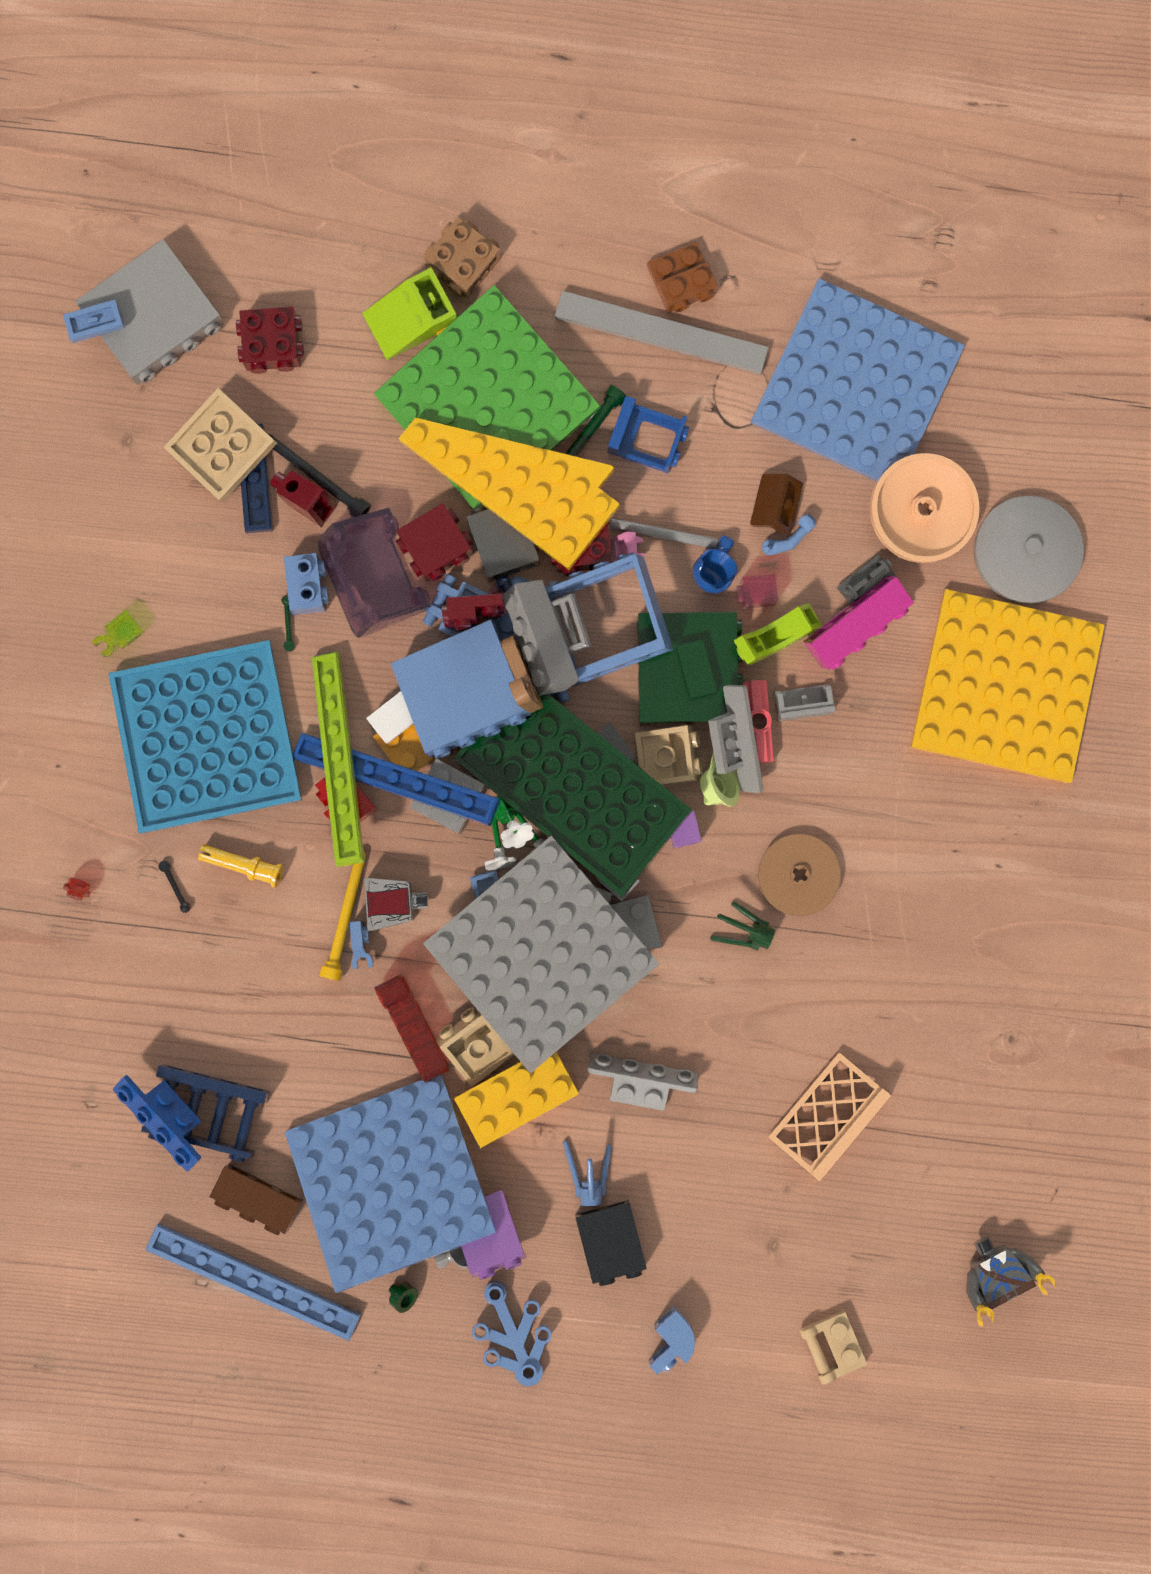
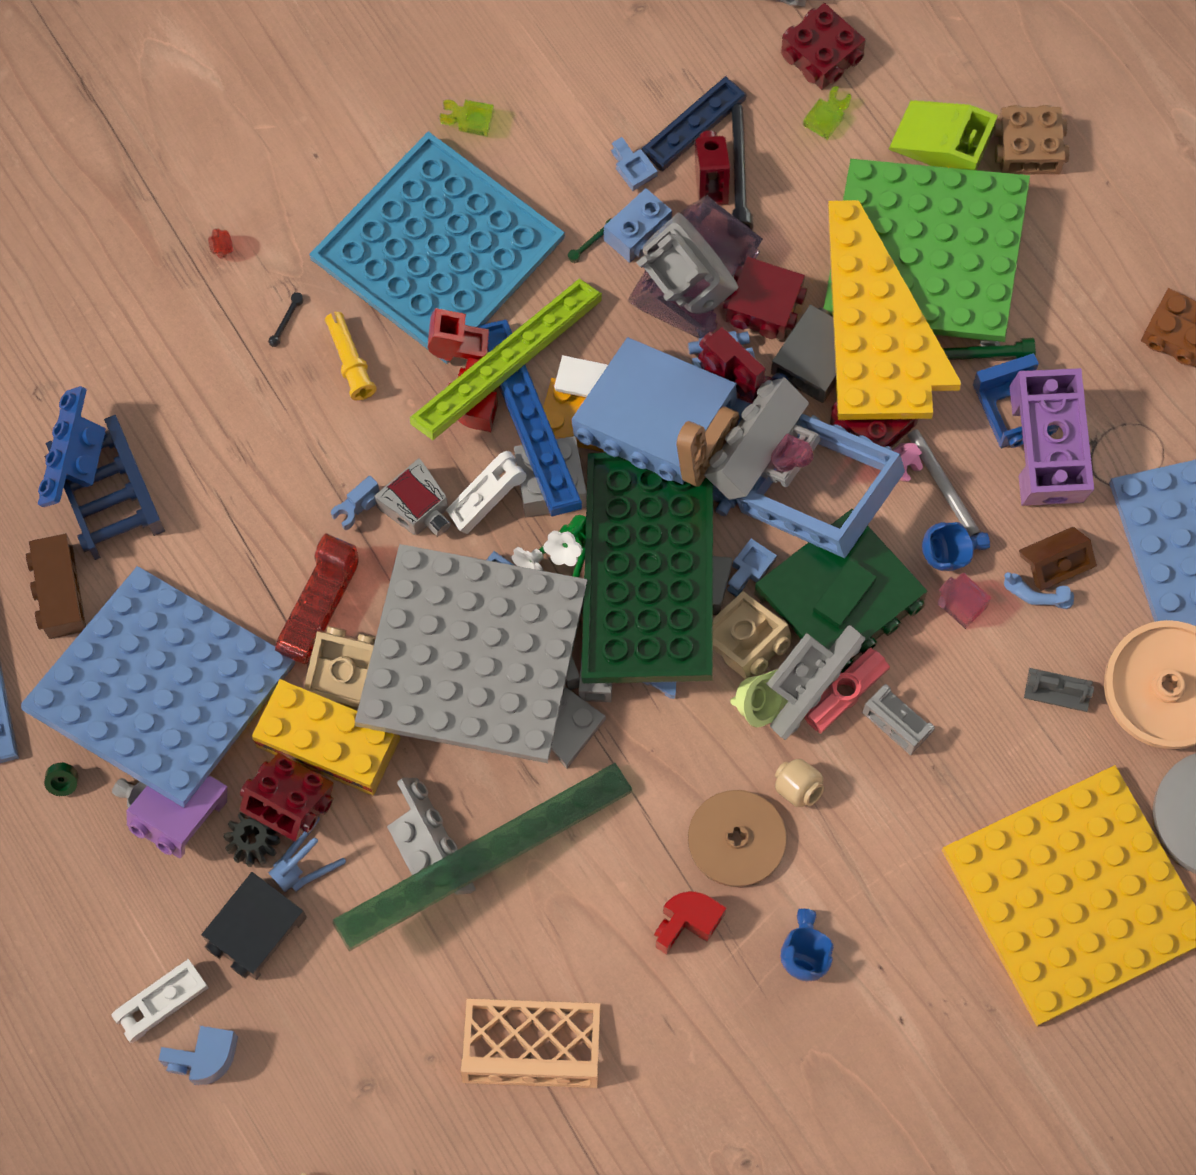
camera: 55 degrees right, 15 degrees down
(220, 445) = (698, 73): tan plate -> none
(257, 549) = (633, 167): none -> medium blue plate
(295, 782) = (452, 338): none -> red brick
(324, 381) = (827, 116): none -> clear neon green plate
(332, 967) = (316, 497): yellow piece -> none
(372, 580) = (679, 259): none -> light grey piece
(426, 851) = (486, 491): none -> white plate
(515, 1338) = (97, 909): medium blue plant -> none
(539, 1202) = (240, 842): none -> pearl dark grey gear
(540, 1155) = (286, 796): none -> dark red brick
(572, 624) = (791, 453): none -> clear pink tile
(612, 1340) = (160, 1000): none -> white plate
(619, 710) = (751, 564): none -> medium blue plate
(661, 332) = (1119, 349): light grey tile -> none
(673, 421) = (1055, 468): none -> medium lavender plate
(685, 1056) = (481, 857): none -> clear green plate
(687, 833) = (689, 700): medium lavender panel -> none
(759, 934) = (651, 843): dark green plant -> none
(777, 635) = (935, 646): lime arch -> none
(796, 804) = (799, 783): none -> tan head
(825, 946) = (689, 911): none -> red brick
(858, 623) = (1014, 707): dark pink brick -> none
(911, 891) = (805, 950): none -> blue hair

